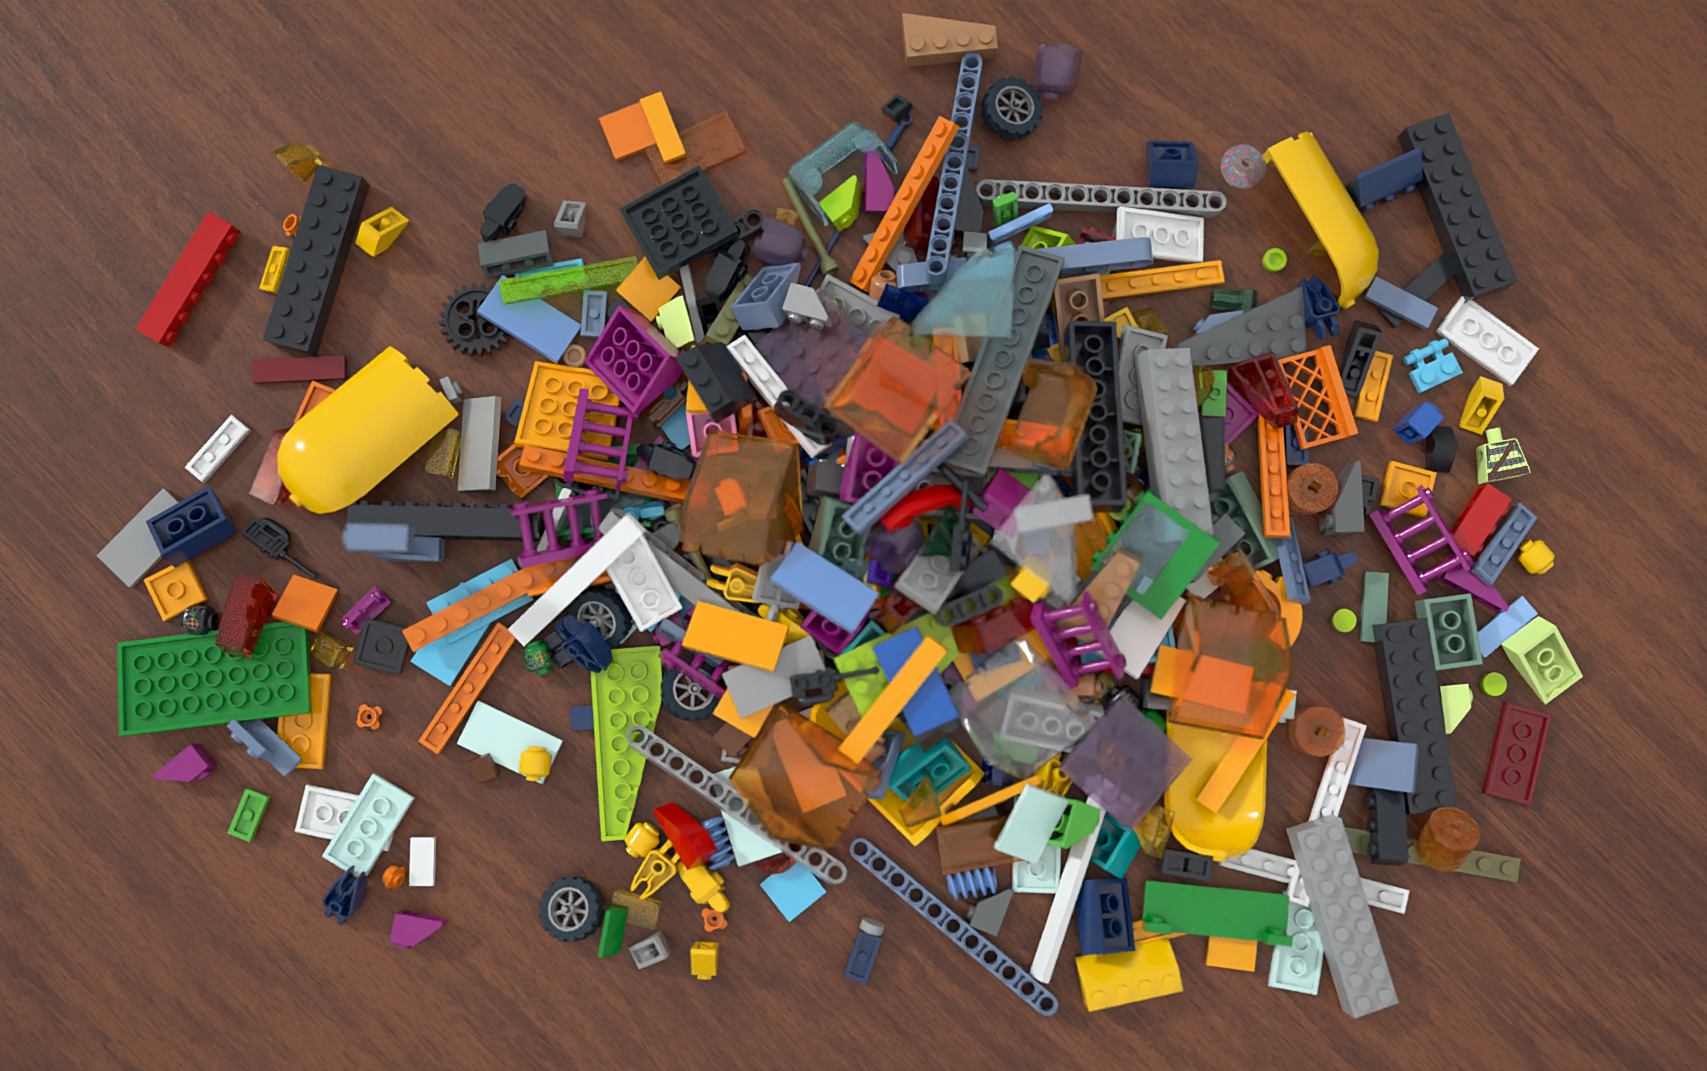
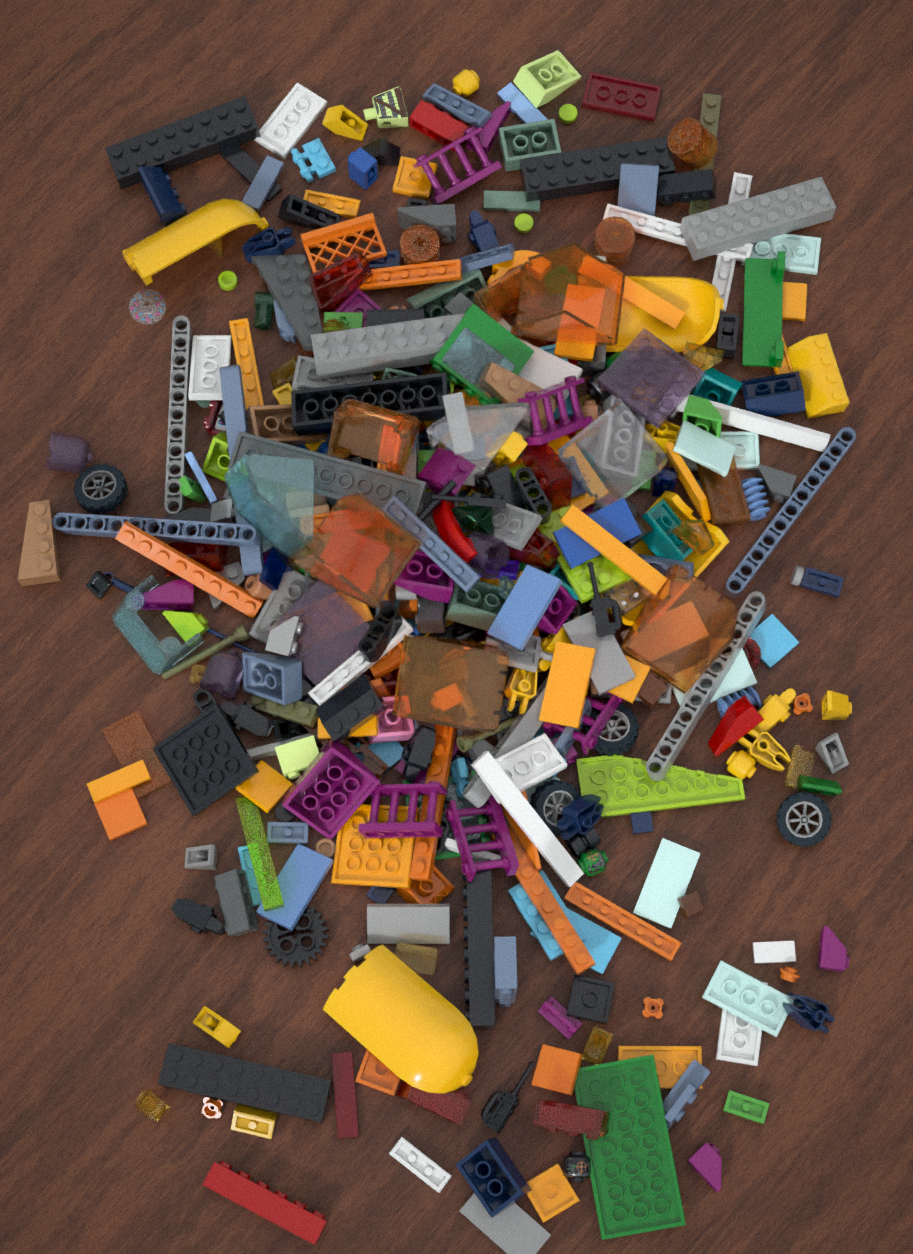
camera: 90 degrees left, 10 degrees down
(535, 763) = (683, 855): yellow head -> none
(1171, 164) = (147, 361): dark blue slope -> none
(1455, 704) = (585, 138): yellowish green slope -> none

